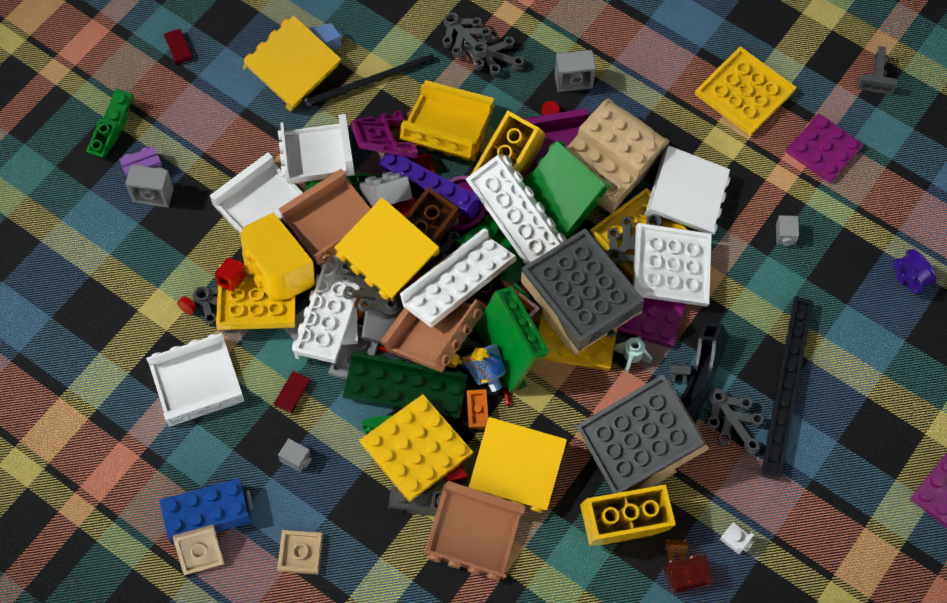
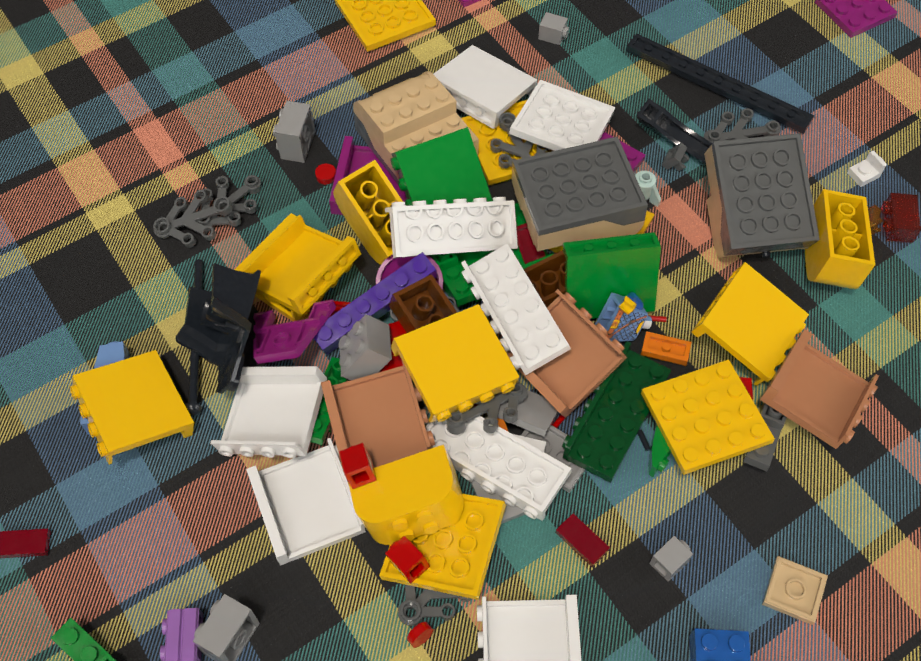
camera: 70 degrees left, 5 degrees down
(279, 212) = (357, 465): none -> red brick
(373, 86) = (219, 323): none -> black piece

